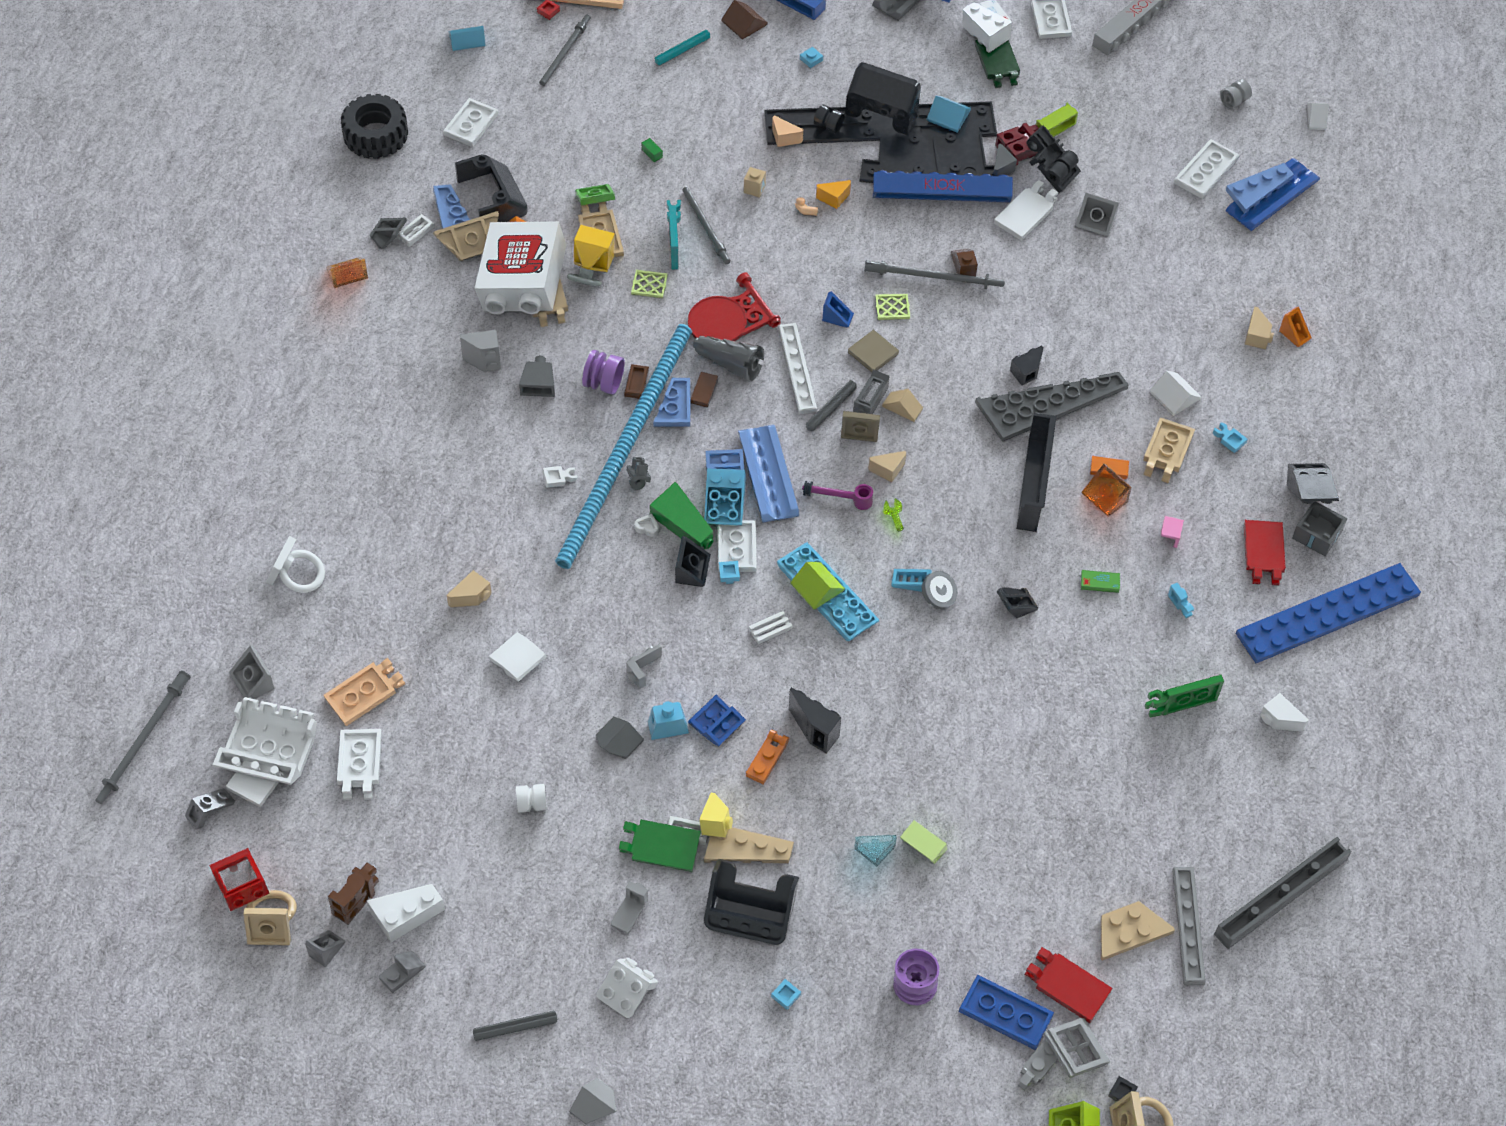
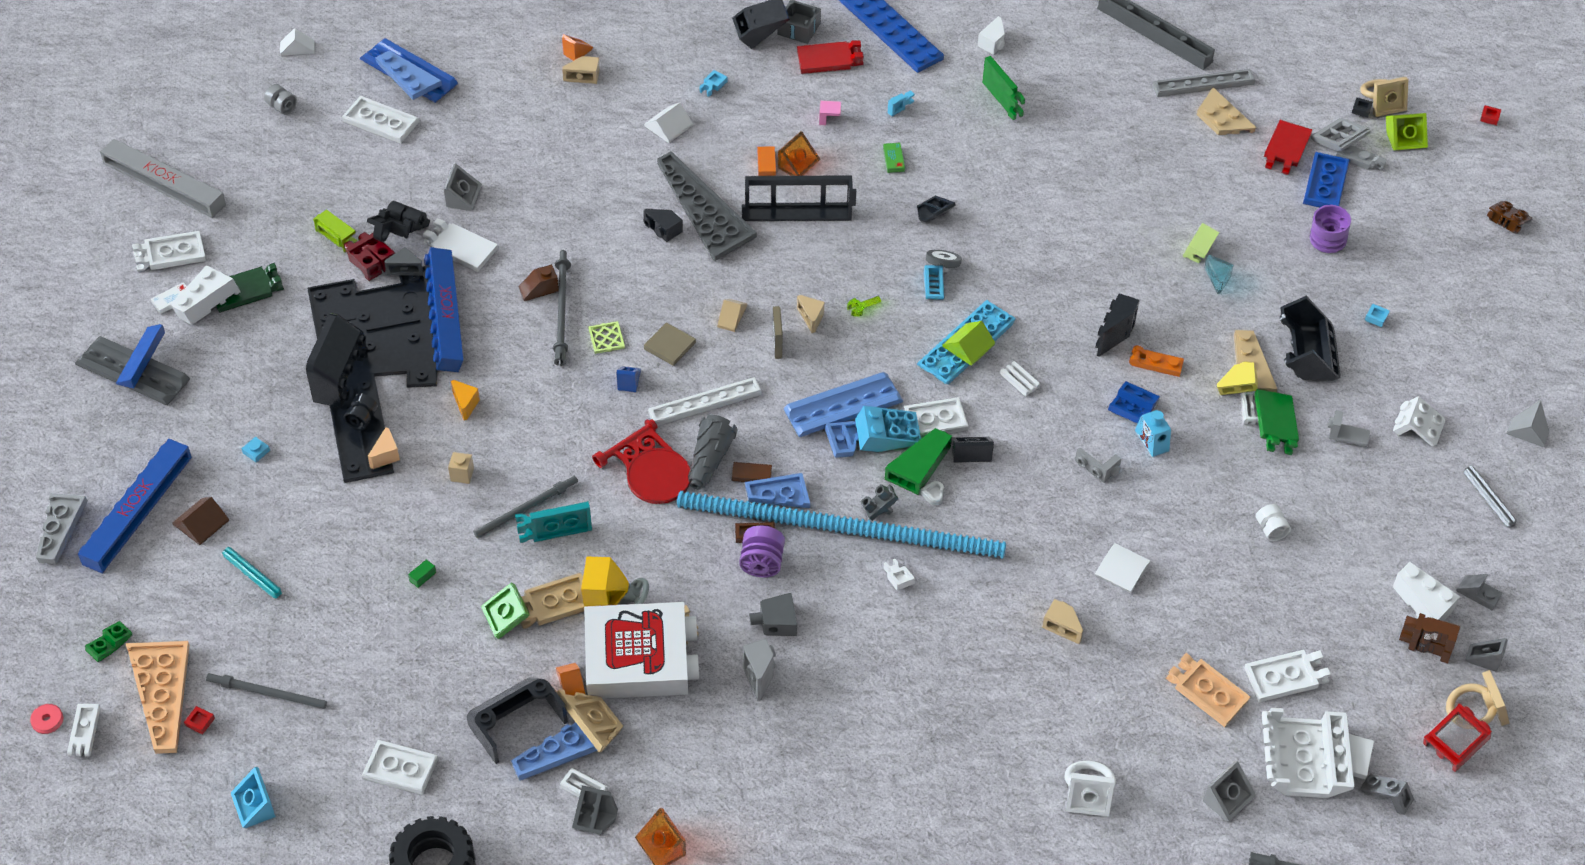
camera: 100 degrees left, 5 degrees down
(619, 737) = (1179, 474): dark grey slope -> none
(649, 274) = (617, 532): yellowish green window -> none
(729, 572) = (973, 412): medium azure tile -> none
(804, 209) = (488, 424): light nougat arm -> none
(831, 405) = (747, 367): dark grey axle -> none
(861, 496) = (854, 329): magenta piece -> none
(872, 393) = (729, 336): dark grey window -> none
(948, 113) = (334, 304): medium azure slope -> none
(1167, 448) = (735, 123): tan tile -> none

